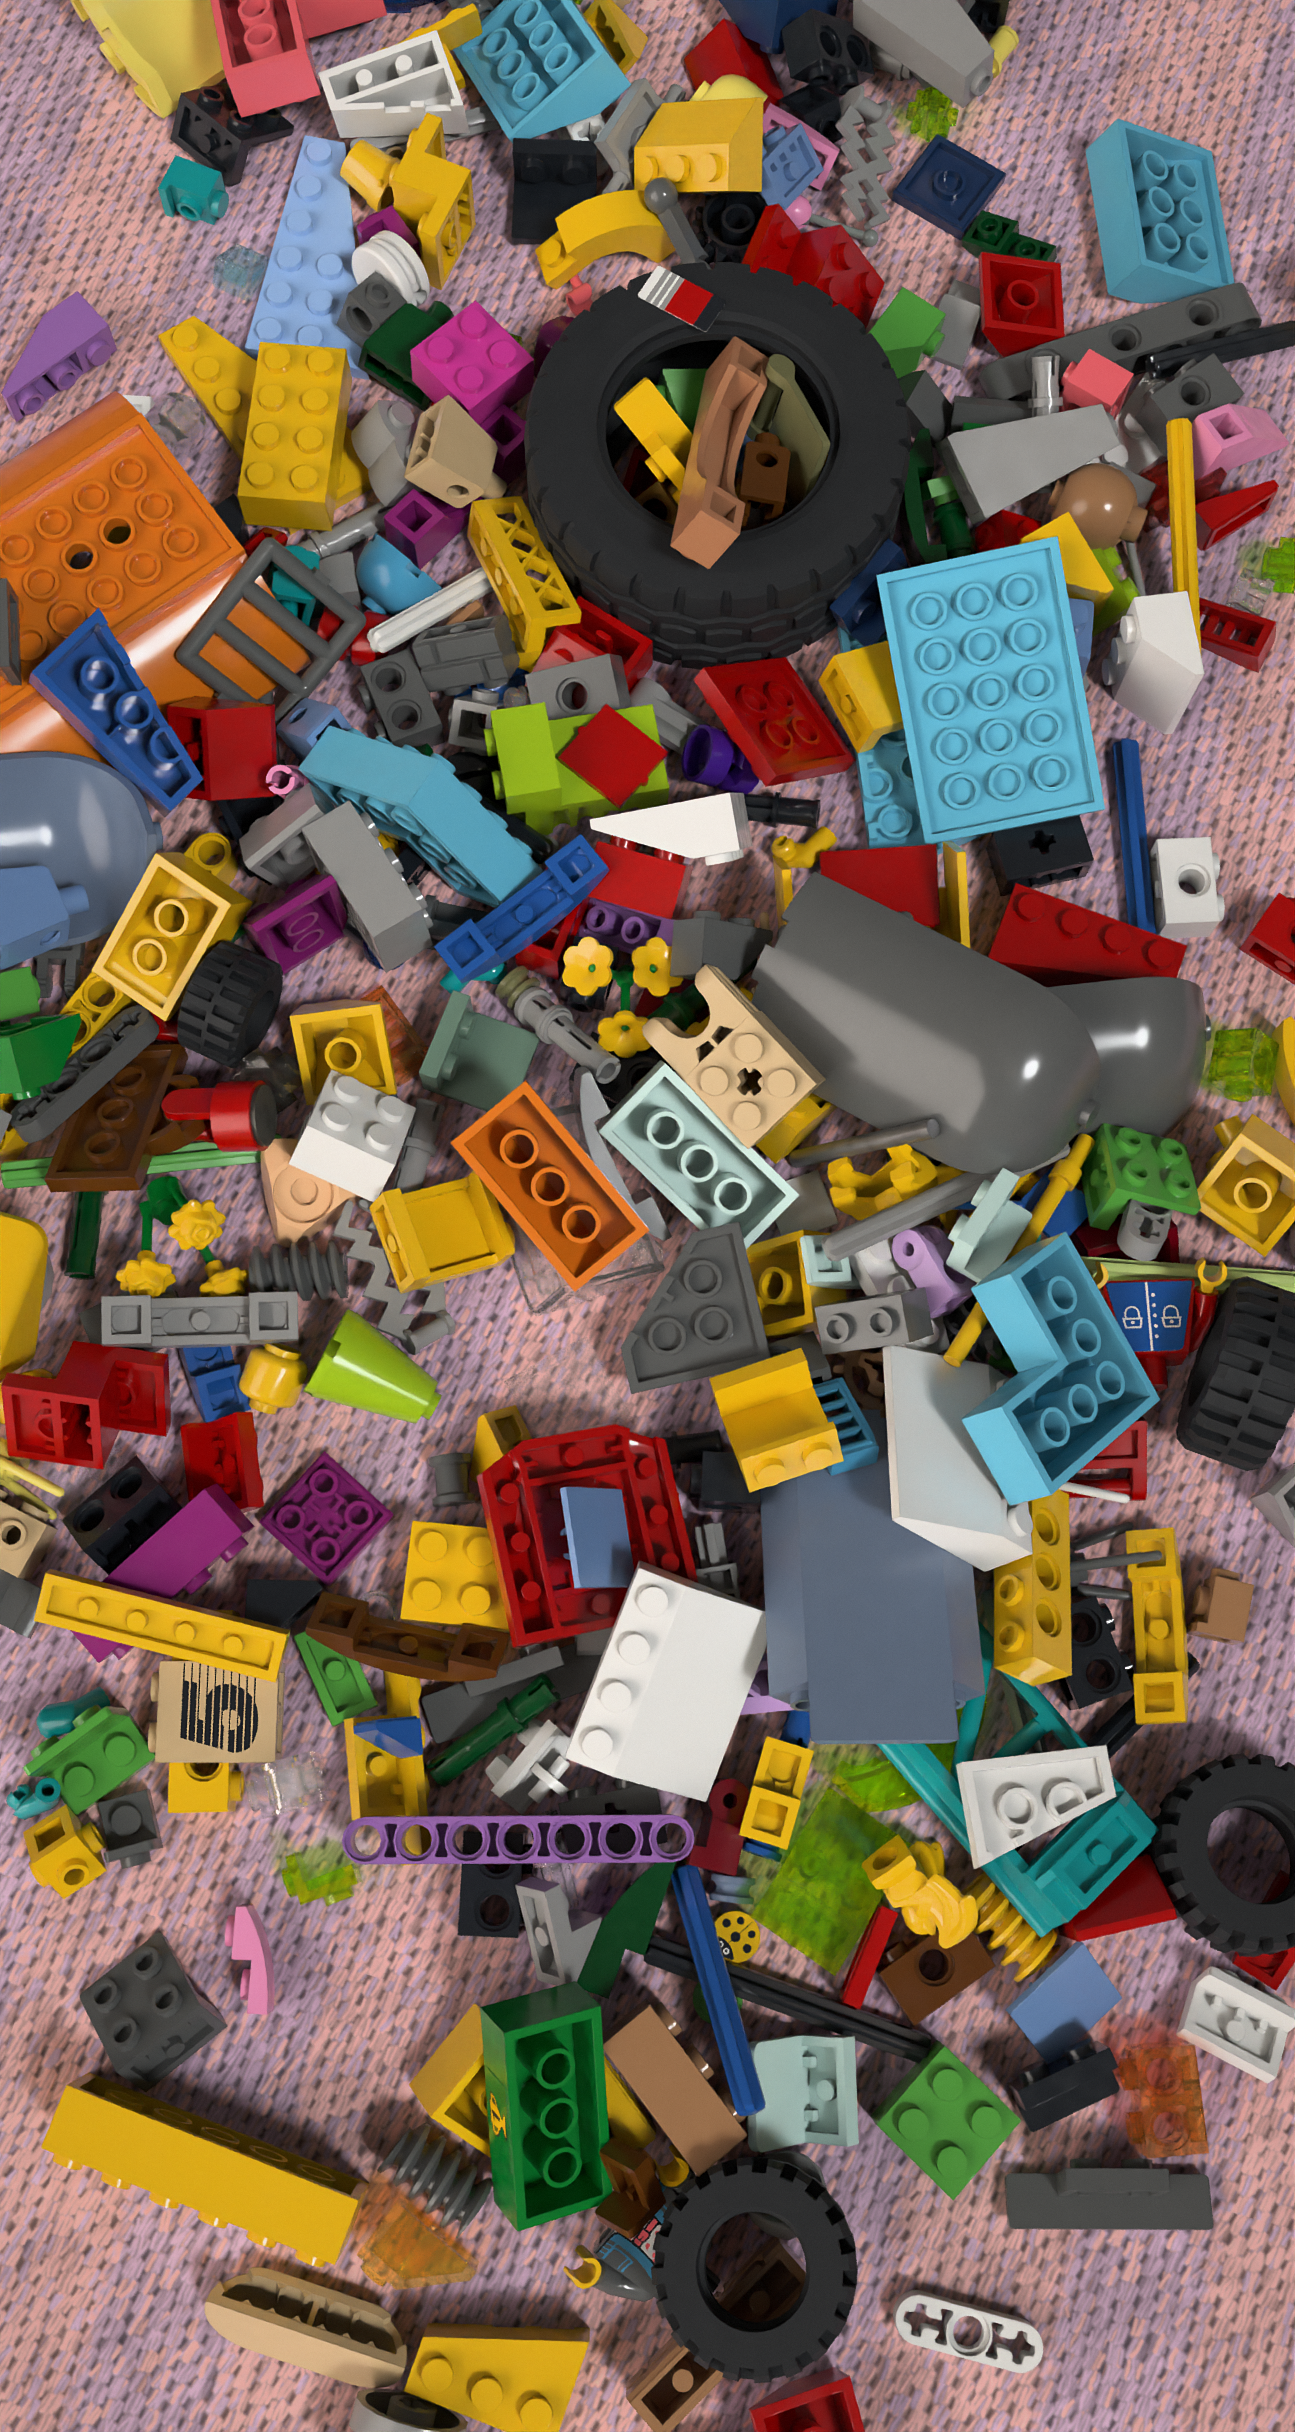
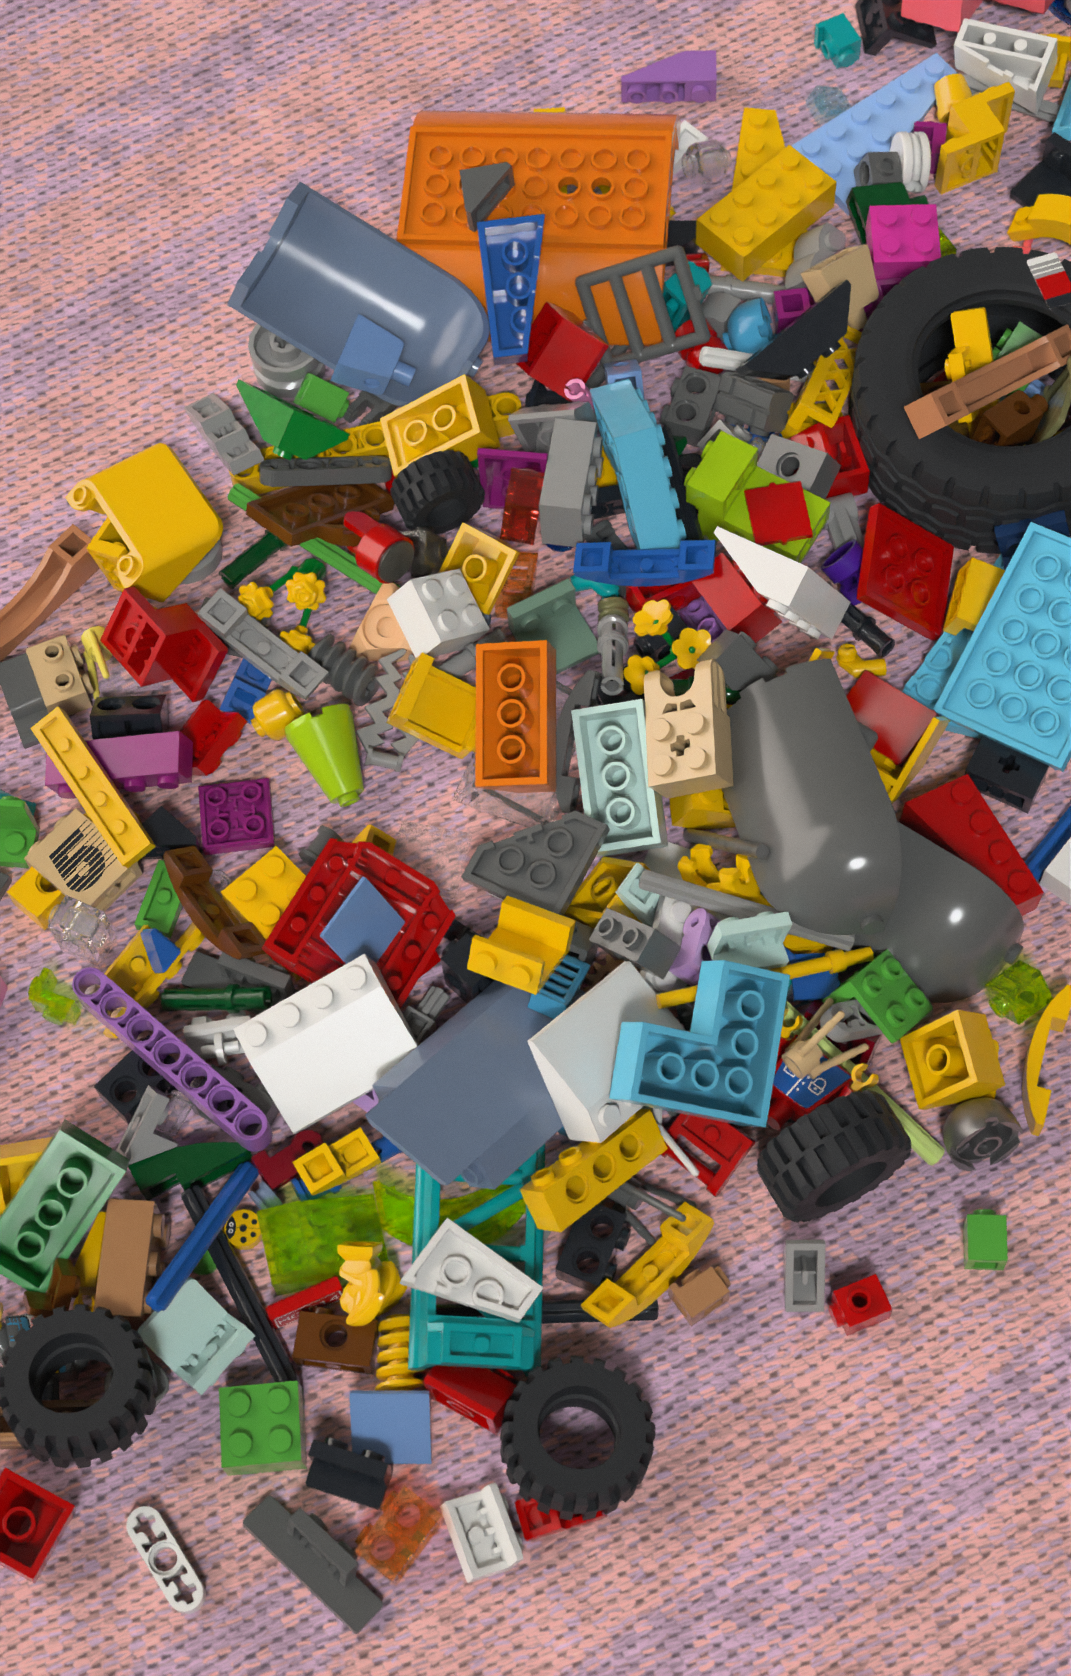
camera: 50 degrees right, 10 degrees down
(339, 948) = (522, 506): none -> clear red brick
(477, 543) = (804, 339): none -> black wedge
(1139, 1300) = (804, 1054): none -> tan plant

